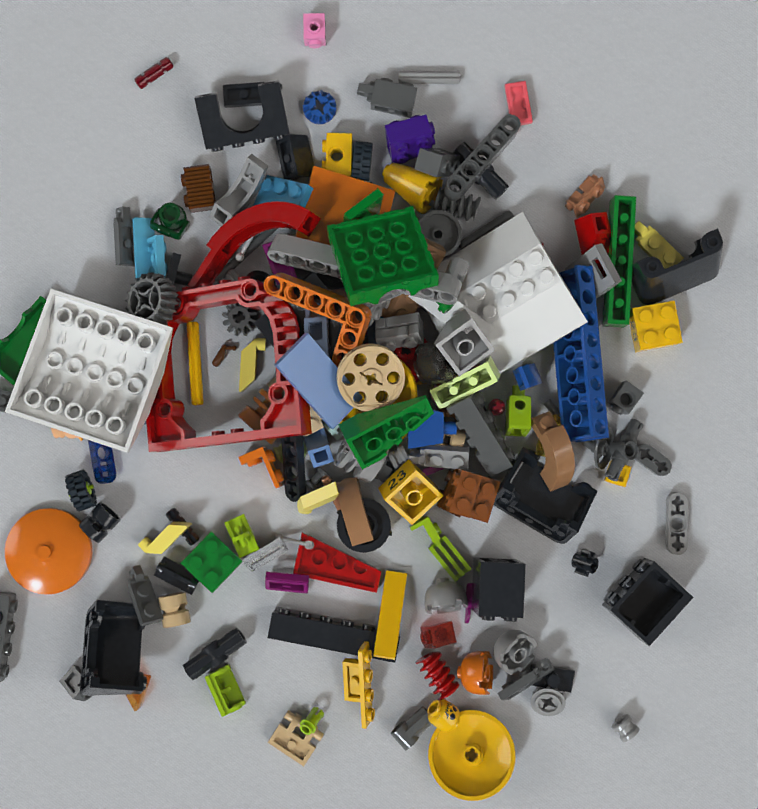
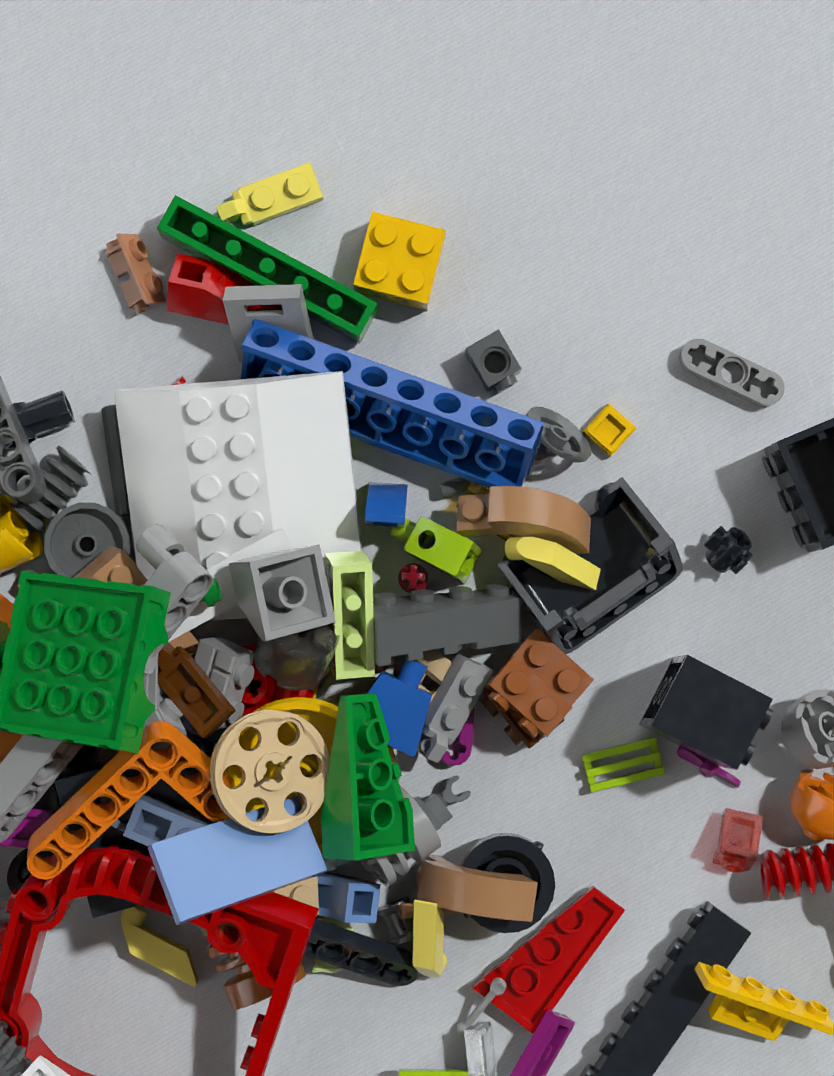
camera: 65 degrees left, 0 degrees up
(195, 363) = (115, 1038): yellow axle -> none
(221, 354) = (120, 988): reddish brown piece -> none
(244, 324) = (77, 945): dark grey gear -> none
(254, 458) = (326, 990): orange bracket -> none
(390, 615) = (671, 905): yellow tile -> none
(391, 320) = (192, 690): none -> reddish brown hinge
(398, 456) = (421, 774): light grey wheel -> none
(410, 492) = (487, 782): yellow brick -> none
(432, 529) = (564, 772): lime bracket -> none
(445, 597) = (681, 802): light grey cylinder -> none
(538, 475) = (553, 560): none -> light yellow piece
(624, 450) = (566, 393): dark grey pin -> none
(655, 456) = (608, 356): dark grey beam -> none
(657, 284) = (335, 225): black windscreen -> none

